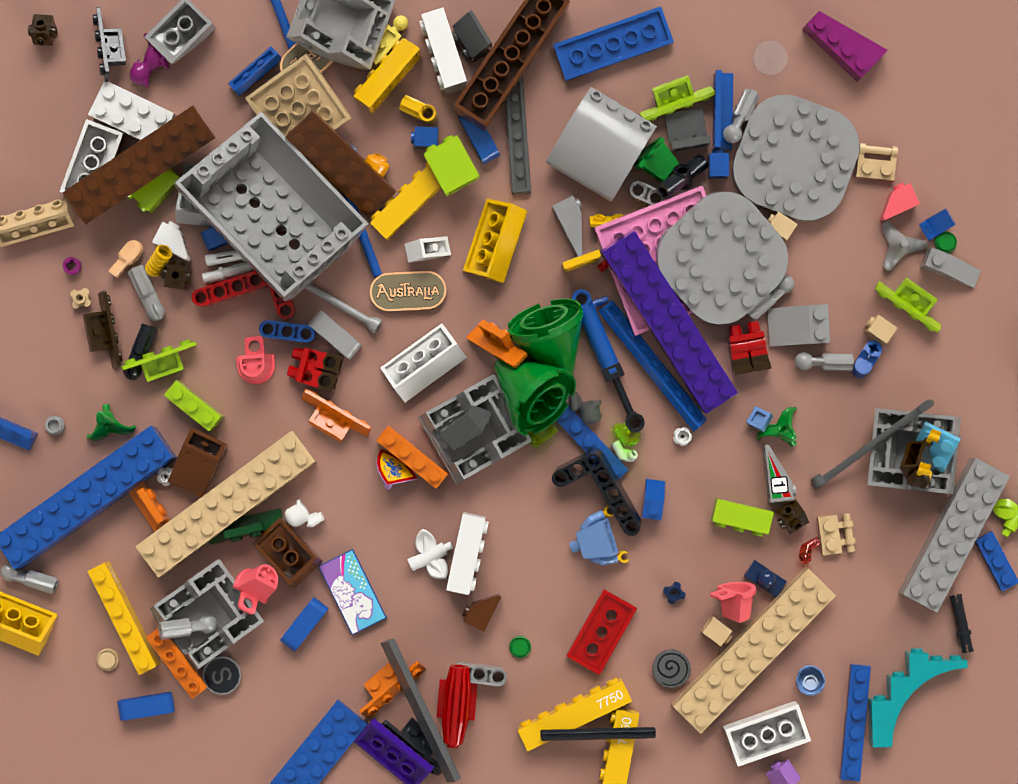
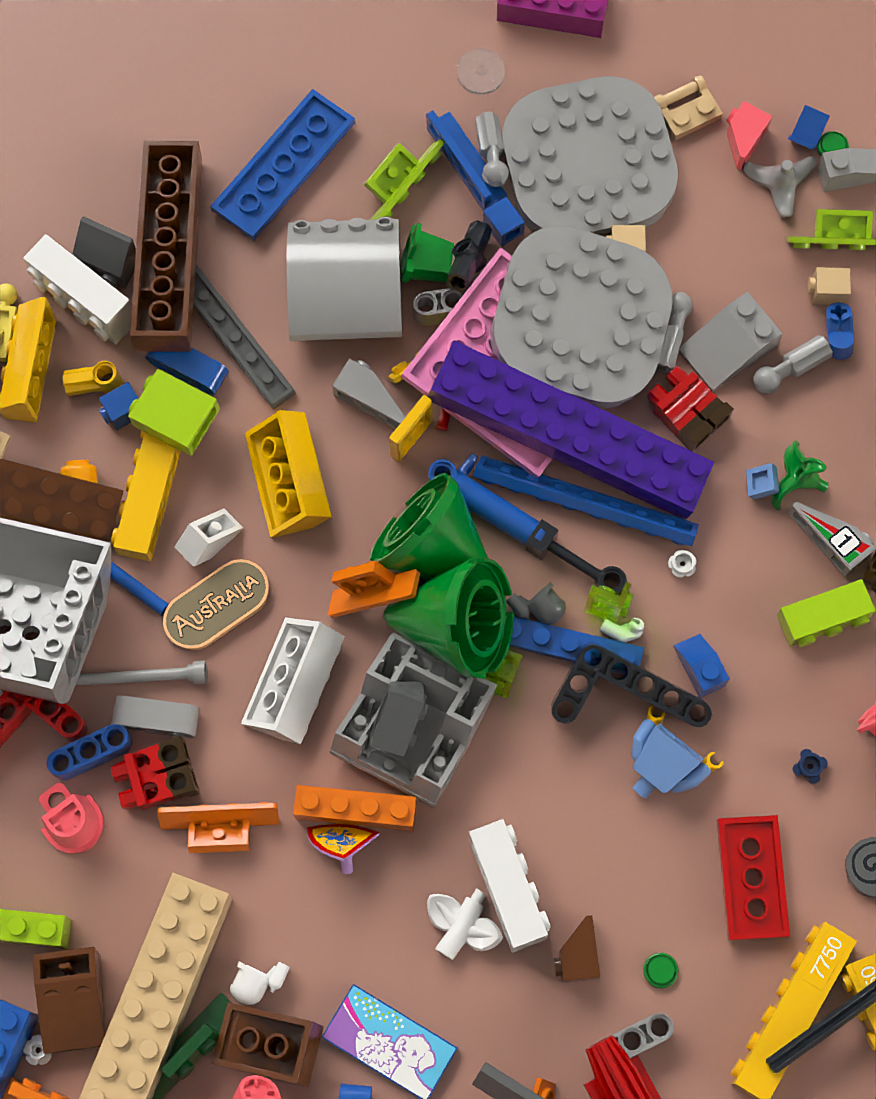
camera: 30 degrees left, 15 degrees down
(687, 130) = (439, 205): dark grey bracket -> none

